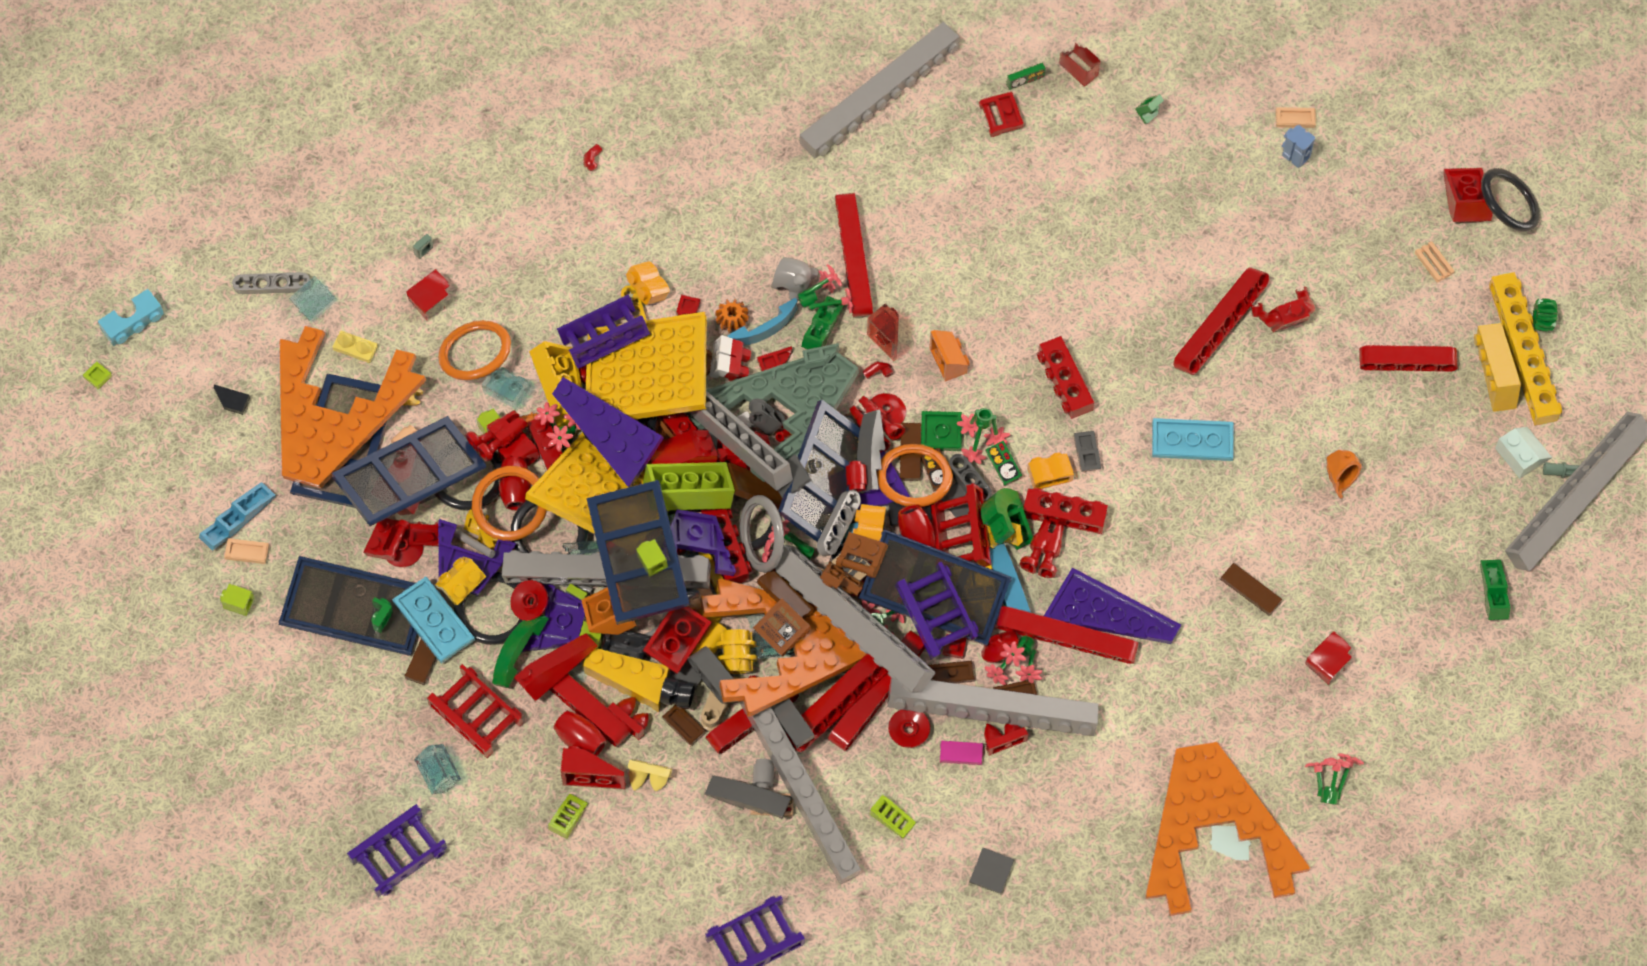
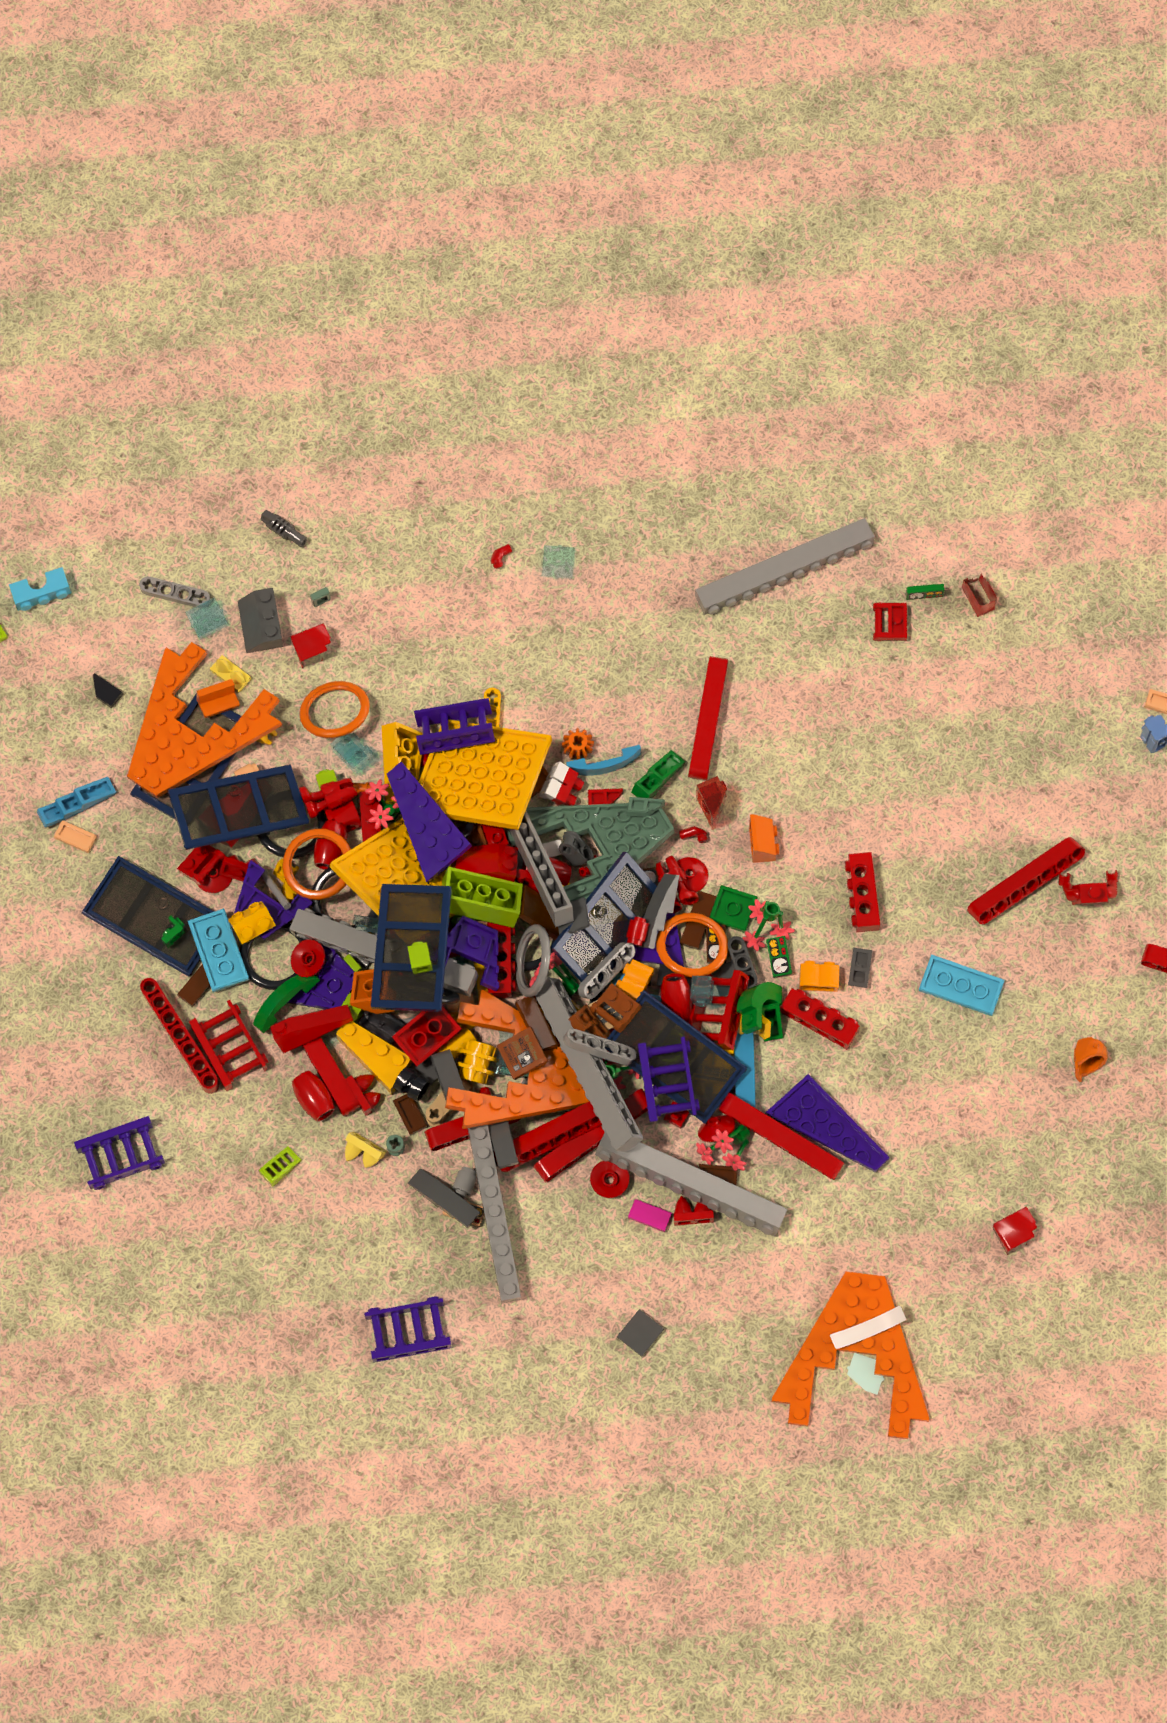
camera: 20 degrees right, 5 degrees up
(237, 599) = (52, 879): lime brick -> none
(350, 373) = (217, 698): none -> orange panel
(362, 190) = (283, 528): none -> dark grey hinge
(369, 286) = (260, 621): none -> dark grey slope
(417, 707) = (176, 1027): none -> red beam
(437, 769) = (177, 1089): clear light blue brick -> none
(588, 770) = (305, 1129): red slope -> none
(647, 282) = (511, 691): light orange brick -> none
(652, 148) = (558, 562): none -> clear light blue piece
(680, 766) = (391, 1141): none -> sand green bush
(687, 305) = (541, 723): red tile -> none
(794, 276) = (645, 723): light grey piece -> none
(808, 297) = (651, 747): plant -> none
(874, 812) = (563, 1238): lime slope -> none
(879, 596) = (578, 1040): none -> light grey beam
(940, 515) = (702, 990): none -> clear light blue brick
(953, 672) = (663, 1138): reddish brown tile -> none
(1044, 543) = (790, 1043): red piece -> none
(1149, 108) = (1029, 656): bracket -> none
(1220, 795) = (868, 1328): none -> white sticker
(1251, 589) = (966, 1143): reddish brown tile -> none
(1331, 793) = (971, 1357): plant -> none

